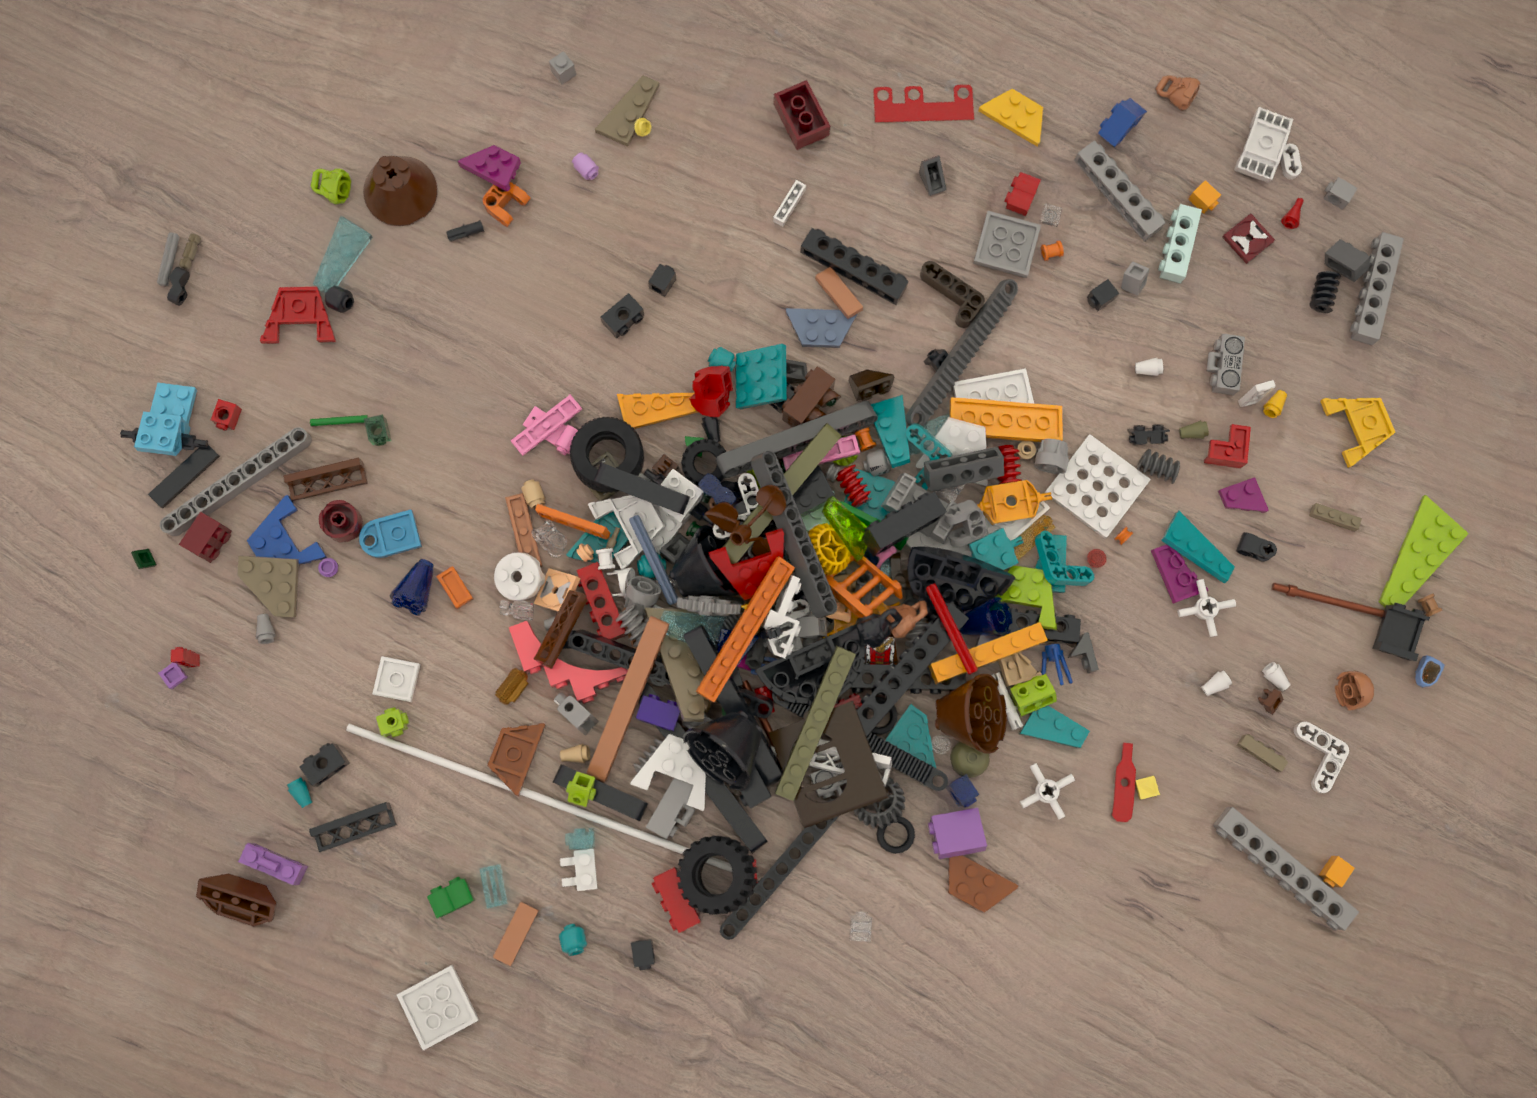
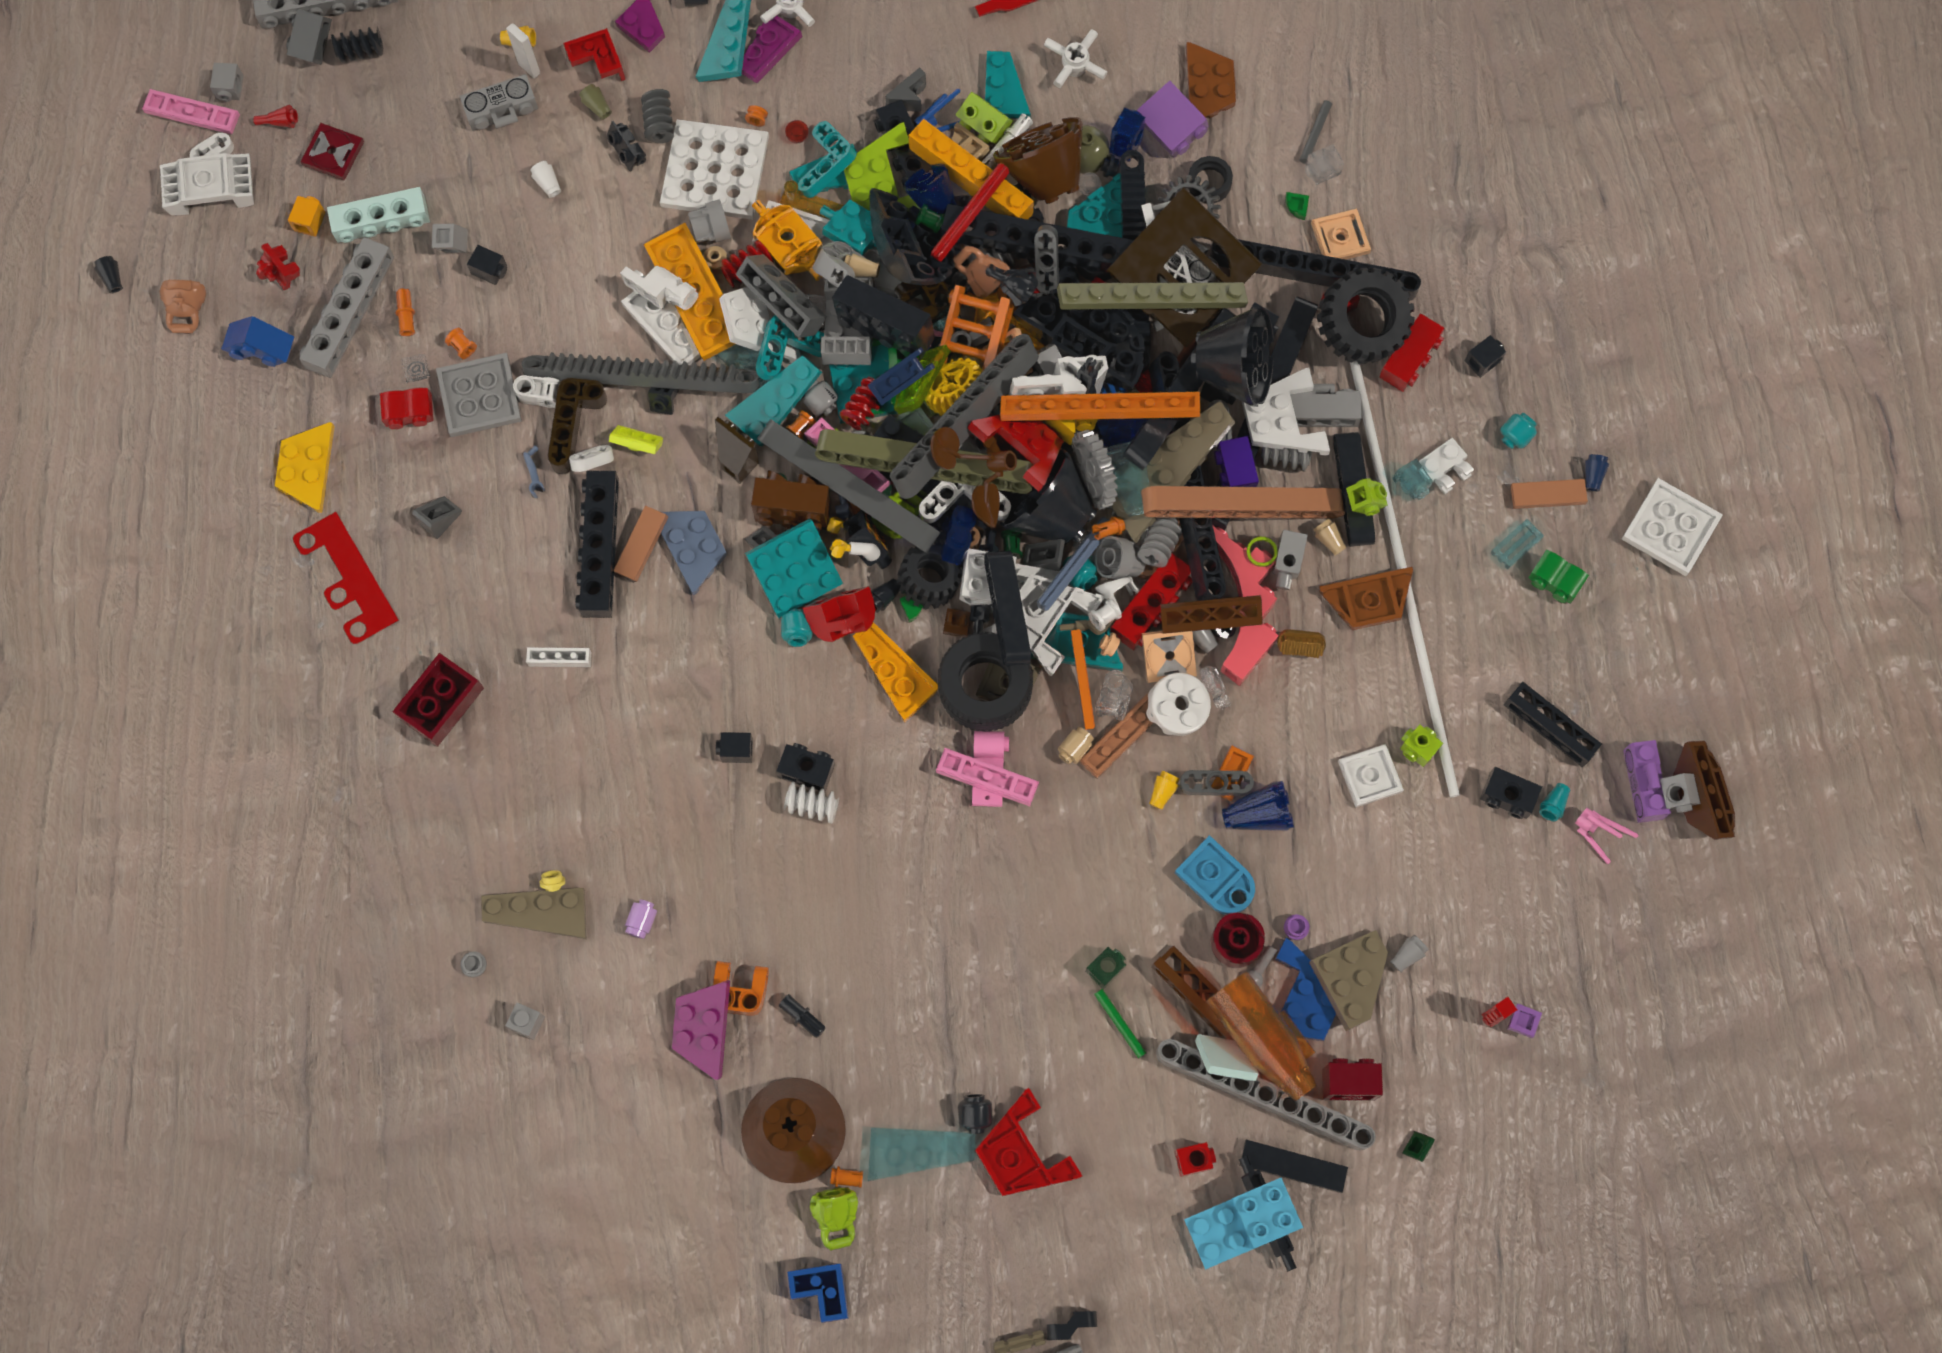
camera: 115 degrees left, 5 degrees down
(246, 876) = (1670, 789): none -> light grey brick
(263, 496) = (1264, 1035): none -> clear orange piece
(270, 466) = (1225, 1058): none -> light aqua tile
(272, 806) = (1590, 820): none -> bright pink plant
(294, 155) = (827, 1284): none -> blue brick
(313, 521) = (1261, 965): none -> light grey bar
(350, 204) = (846, 1177): none -> orange pin
(438, 579) = (1235, 788): none -> dark grey beam
(471, 536) = (1163, 789): none -> yellow cone
(510, 977) = (1595, 471): none -> dark blue cone
(589, 684) = (1258, 563): none -> lime piece
(596, 306) = (811, 802): none -> white piece
(618, 58) = (473, 964): none -> light grey plate
(664, 596) = (1113, 526): none -> orange pin
(754, 427) = (862, 540): none -> torso
(809, 908) = (1343, 224): none -> light nougat piece
(841, 889) = (1297, 204): none -> green tile
(852, 510) = (899, 377): none -> dark blue hinge
(890, 670) = (1051, 250): none -> dark grey beam
(892, 940) = (1316, 130): none -> dark grey bar
(916, 327) = (636, 439): none -> neon yellow plate
(917, 290) = (591, 458): none -> white beam
(930, 252) = (533, 471): none -> sand blue piece
(946, 766) = (1110, 166): none -> black plate
(954, 534) = (862, 267): none -> tan cone
(967, 604) = (930, 219): none -> dark green bush
(986, 283) = (542, 391): none -> white piece
(1017, 395) = (660, 287): none -> white plate
(1096, 227) = (405, 312): none -> orange axle
(1184, 161) = (272, 266): none -> red hips
(1228, 56) = (108, 271): none -> black cone
(1328, 161) = (191, 111): none -> bright pink plate

